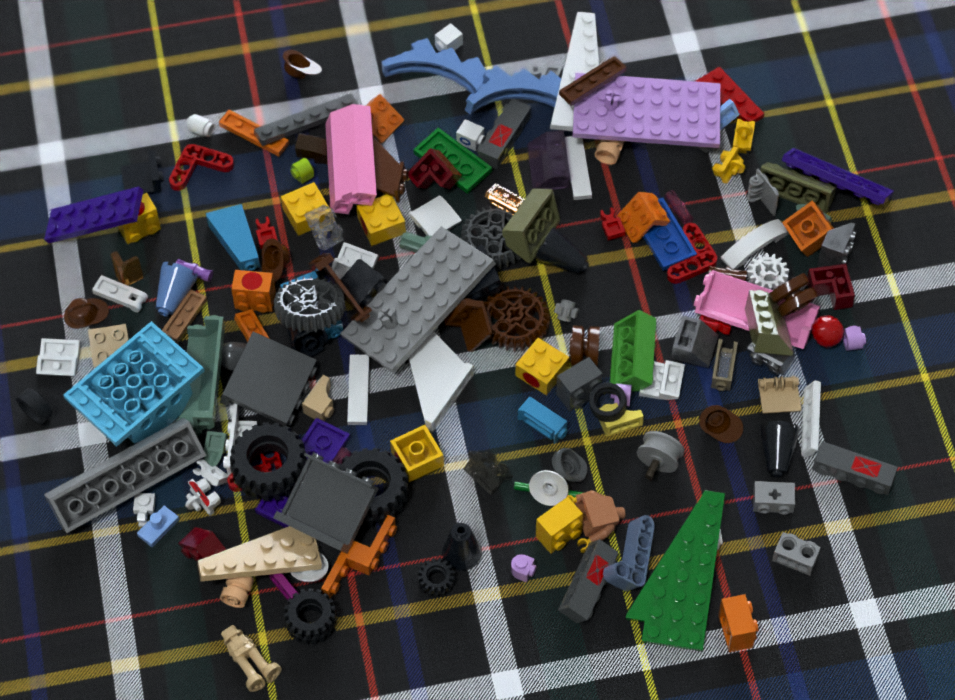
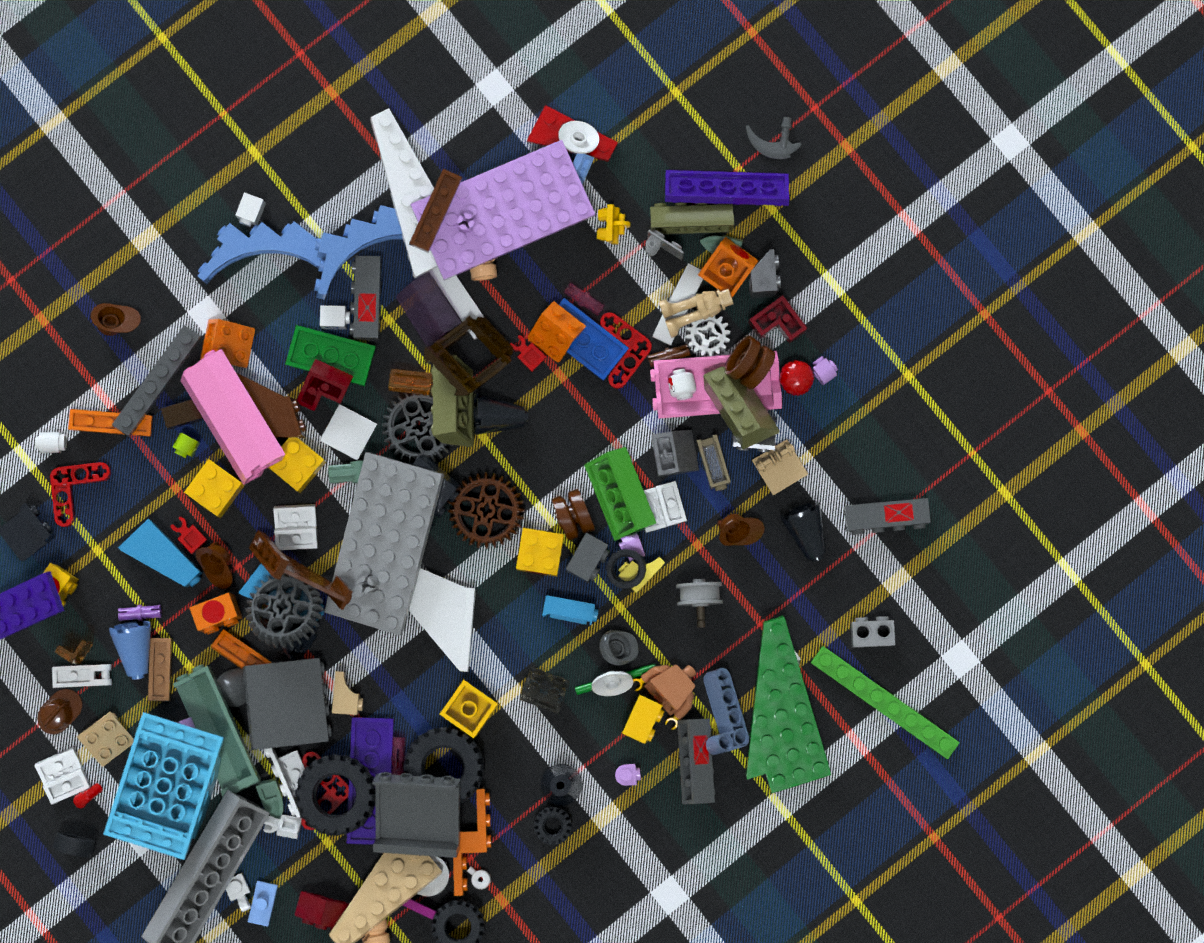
camera: 25 degrees left, 25 degrees up
(60, 380) = (81, 799): none -> red arm
(198, 489) = (280, 849): white hips -> none
(321, 229) = (247, 506): clear brick -> none
(350, 591) = (475, 878): none -> white piece
(358, 390) = (374, 663): white tile -> none
(363, 282) = (317, 548): black bracket -> none
(473, 321) = (452, 541): reddish brown bracket -> none
(538, 71) = (373, 200): light grey plate -> none
(544, 180) = (453, 371): none -> dark brown wedge
(566, 310) = (532, 477): light grey gear -> none
(716, 324) = (681, 423): red plate -> none
(727, 296) = (682, 384): none -> white head
(734, 91) = (579, 137): none -> white dish
(738, 623) = (853, 737): orange brick -> none
(743, 135) = (610, 182): yellow hips -> none
(778, 244) = (707, 303): none -> tan piece
(780, 616) = (885, 702): none -> bright green plate
(782, 493) = (834, 576): light grey brick -> none
(811, 416) = (822, 481): white tile -> none
(891, 172) = (775, 150): none -> dark grey piece

